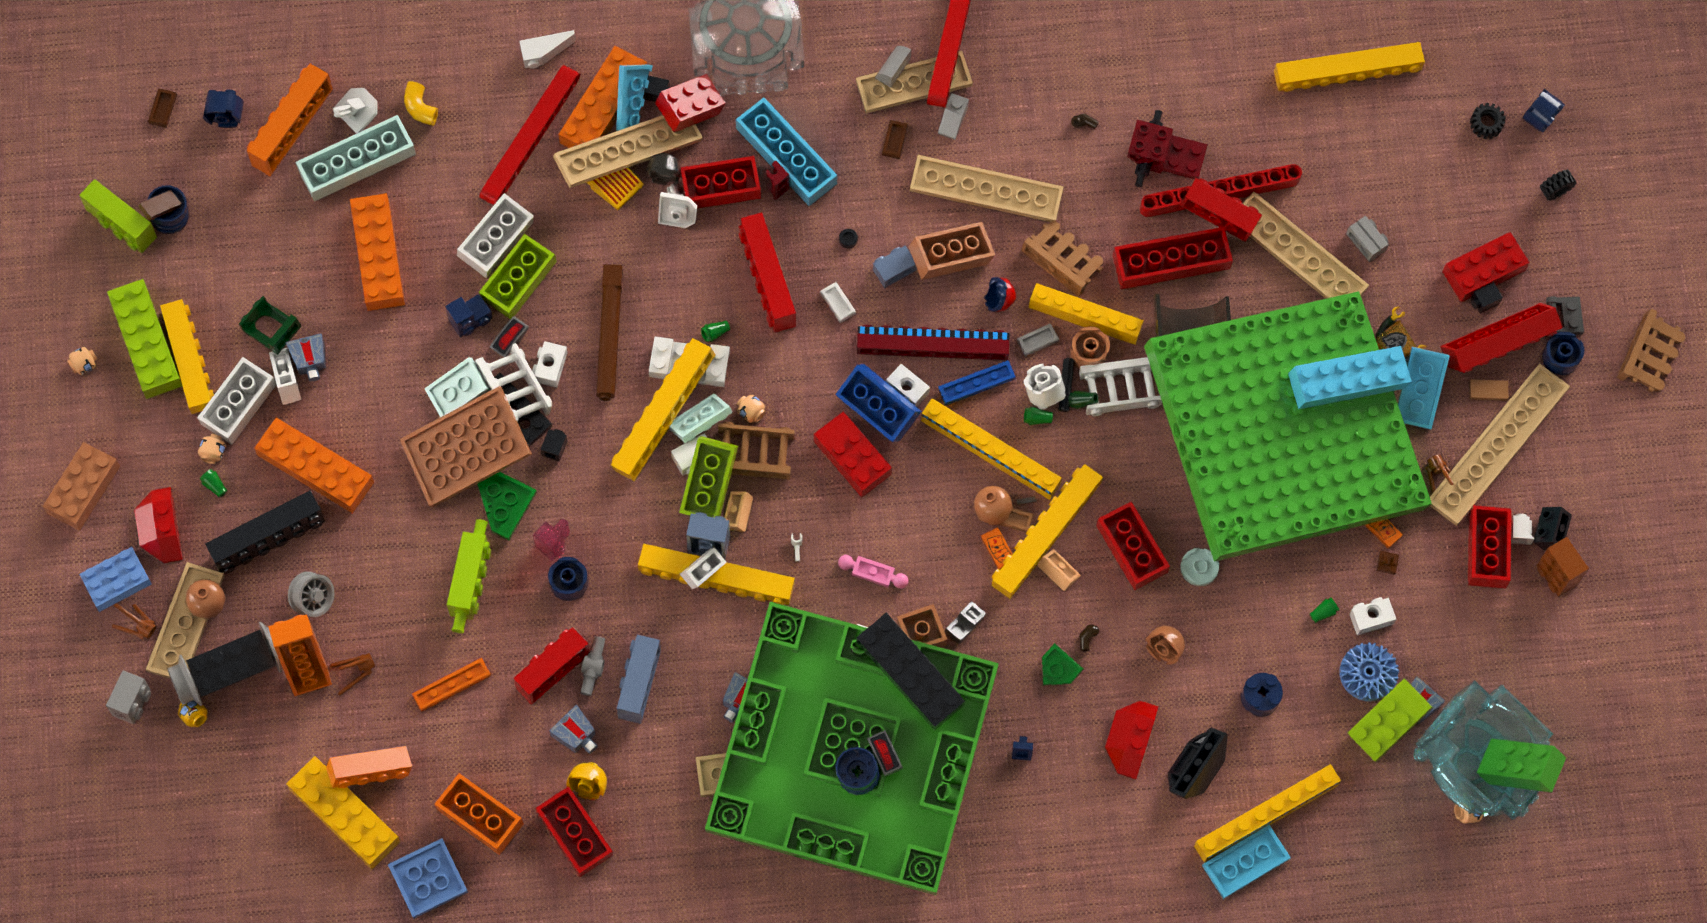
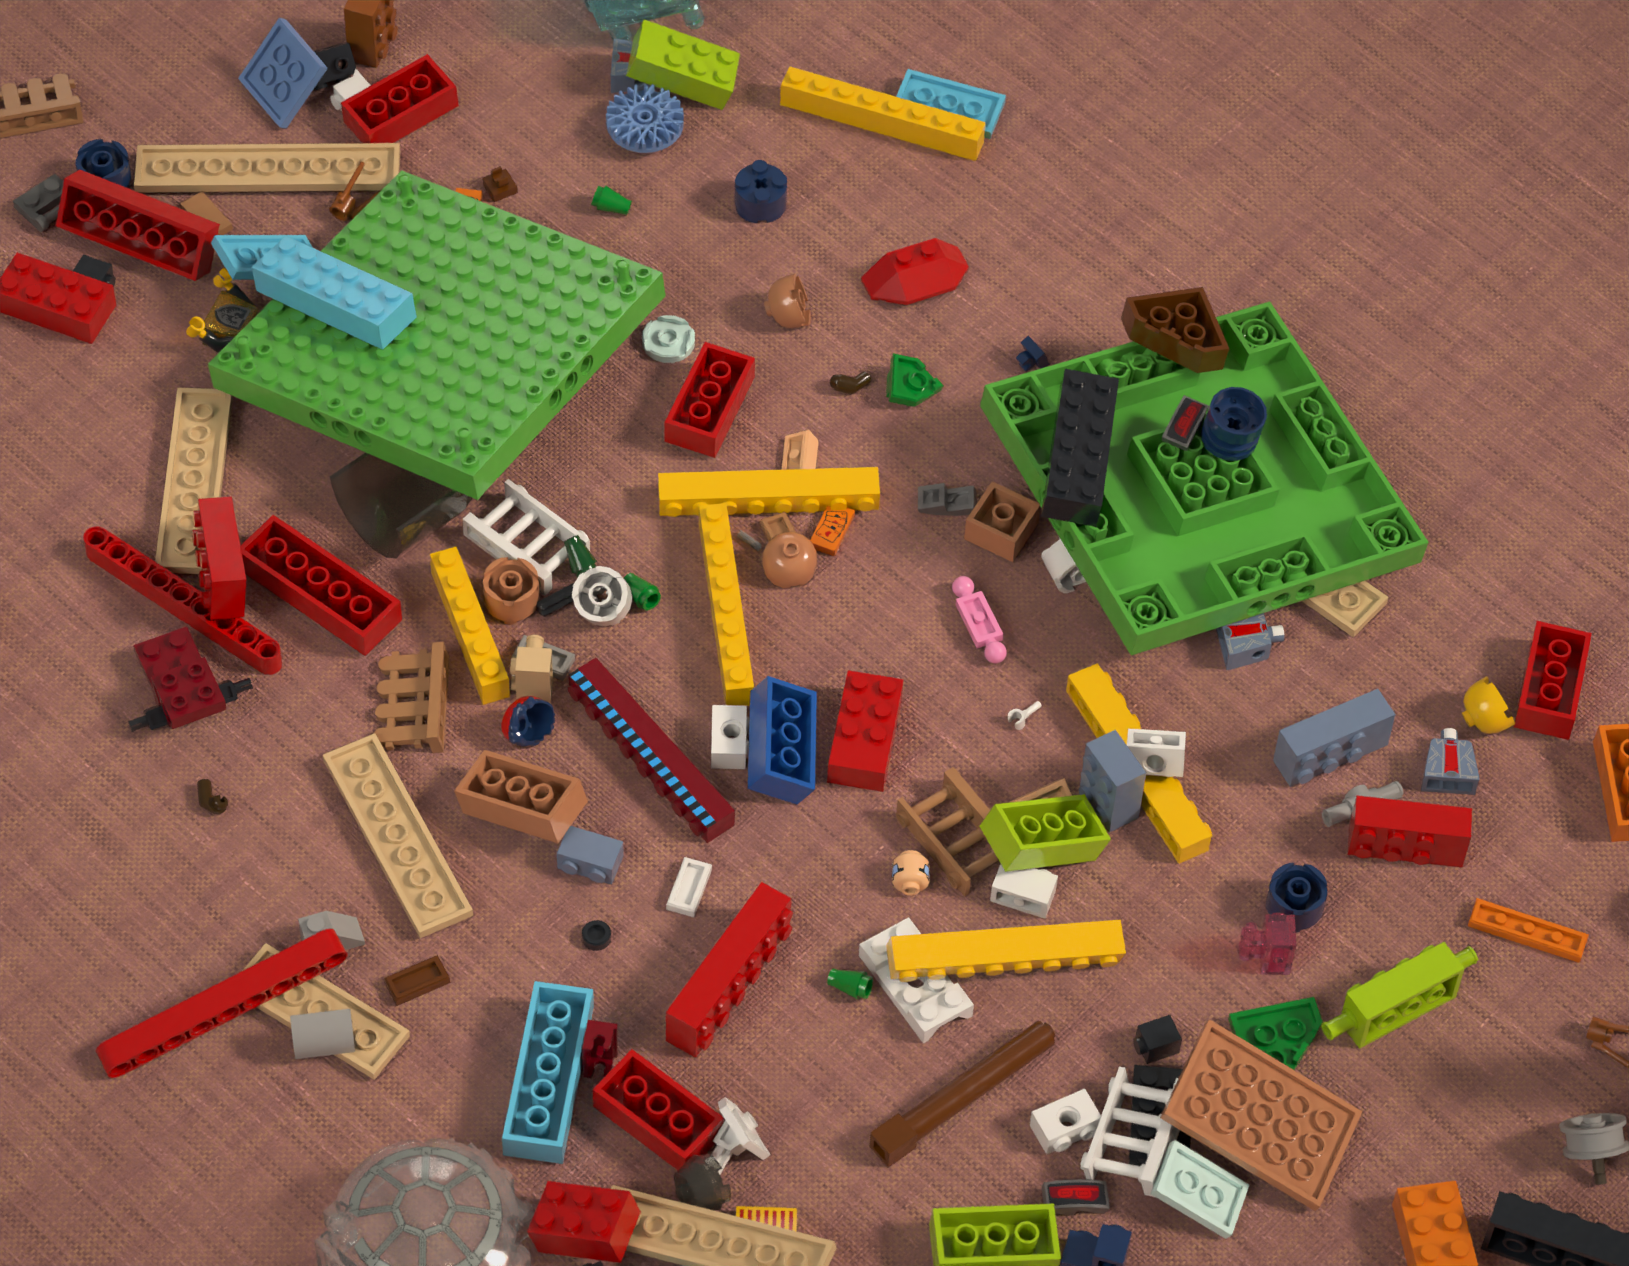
camera: 130 degrees left, 15 degrees down
(700, 418) = (974, 904): light aqua plate -> none
(949, 803) = (1177, 327): none -> reddish brown brick
(976, 382) = (657, 676): blue plate -> none
(1025, 316) = (532, 670): none -> tan brick
(1198, 764) = (895, 199): black wedge -> none
(1364, 623) = (577, 156): white brick -> none
(1367, 238) = (116, 425): light grey brick -> none
(1559, 493) = (282, 73): none -> medium blue plate

